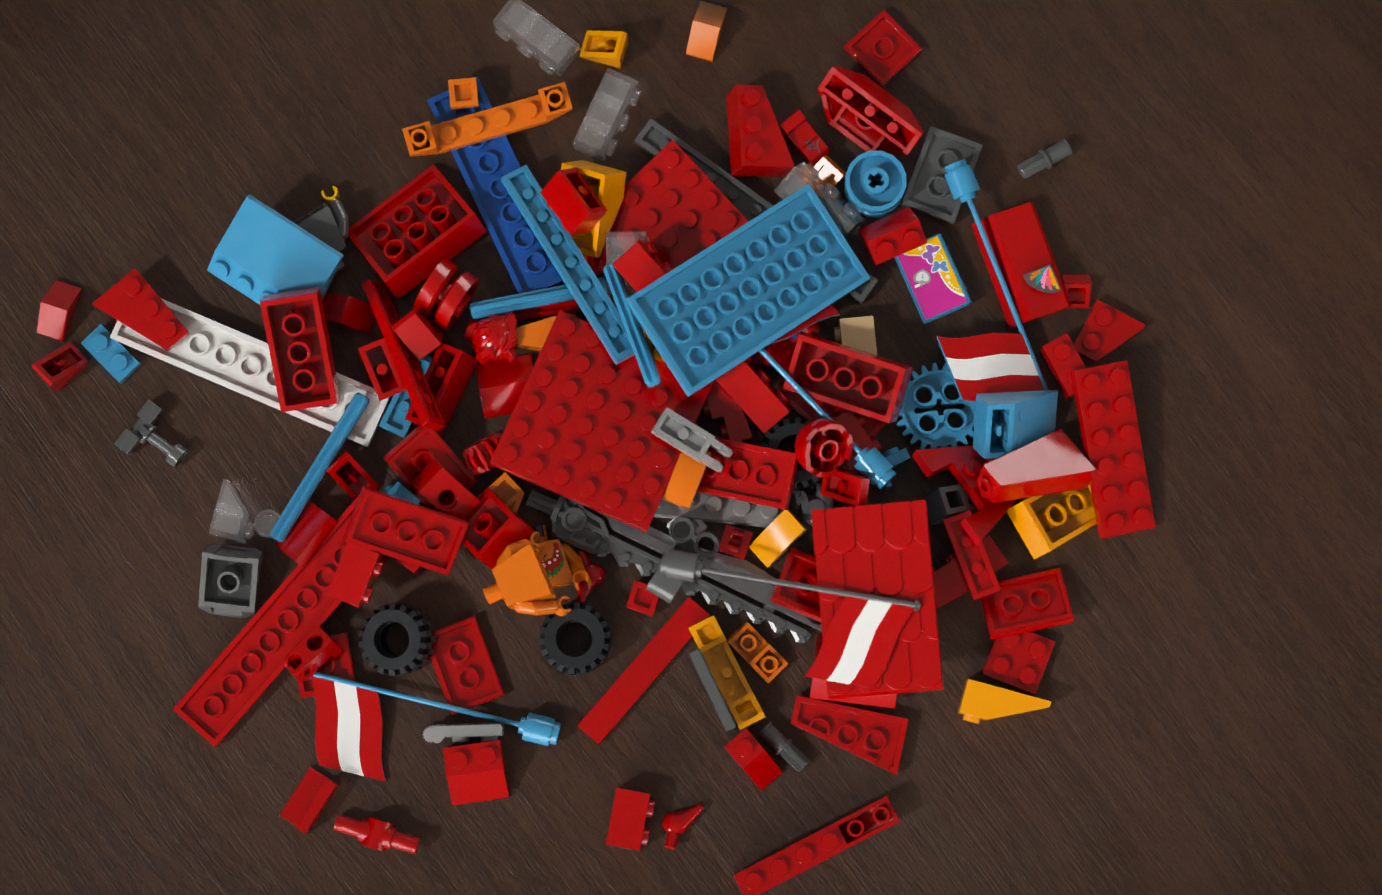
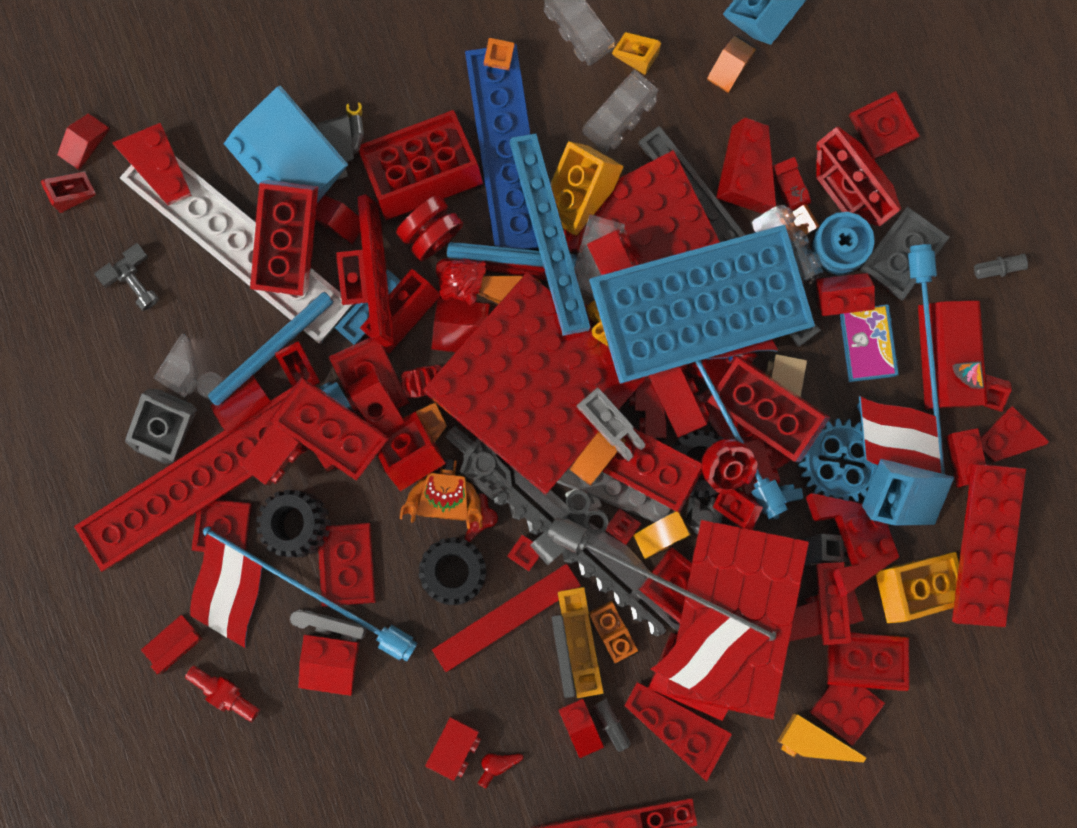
camera: 10 degrees right, 0 degrees up
(110, 354) = (116, 193): dark azure plate -> none
(311, 654) = (212, 514): red leg -> none
(418, 334) = (394, 255): red slope -> none
(489, 123) = (513, 88): orange slope -> none
(524, 580) = (422, 506): orange torso -> none
(573, 201) = (568, 178): red brick -> none
(632, 327) = (588, 306): dark azure axle -> none
(1036, 469) = (915, 543): slope -> none

